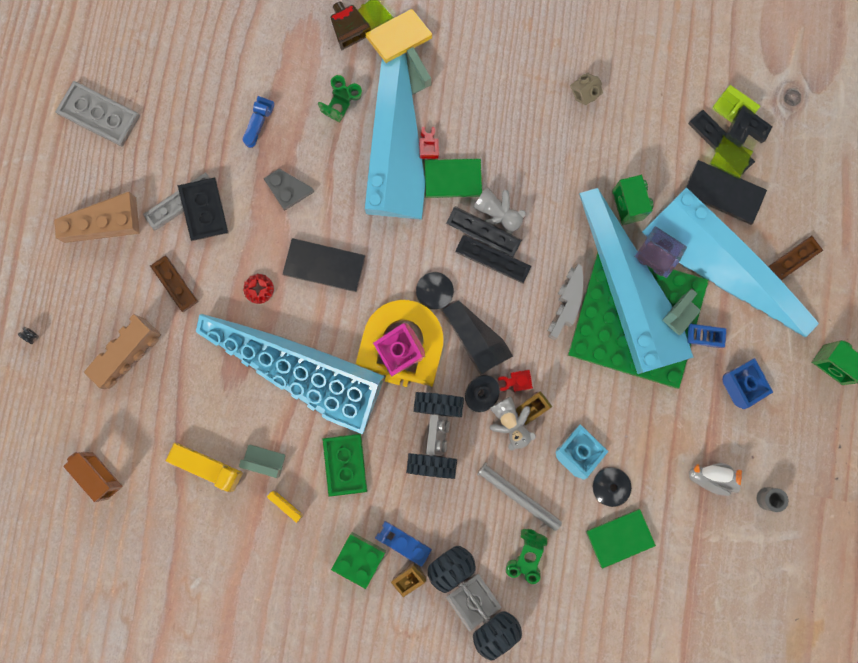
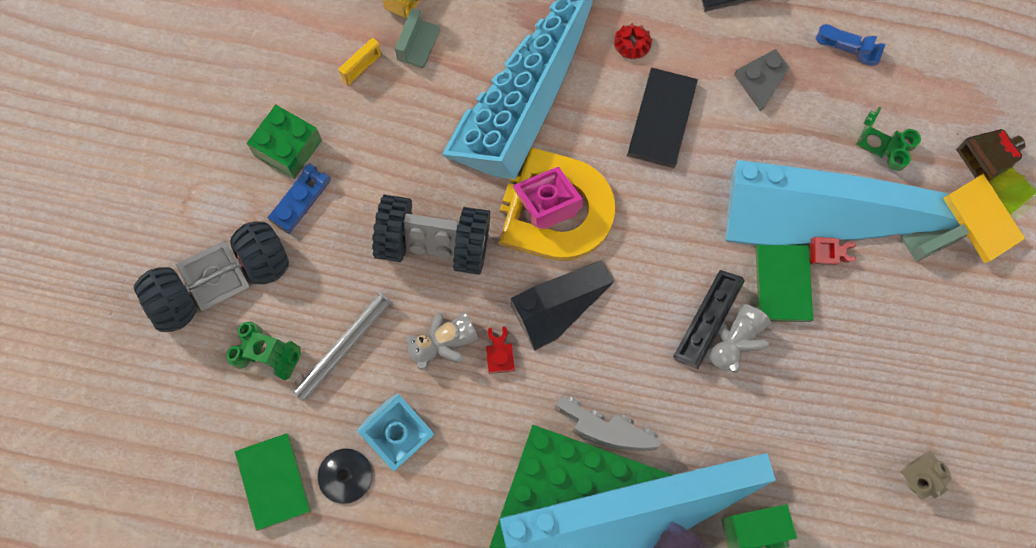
camera: 95 degrees right, 10 degrees down
(344, 465) = (405, 133): green tile -> none
(409, 580) = (254, 202): pearl gold slope -> none
(434, 290) = (627, 251): black dish -> none
(486, 398) = (475, 305): black dish -> none
(493, 259) = (670, 331): black tile -> none
(538, 405) = (463, 374): pearl gold slope -> none

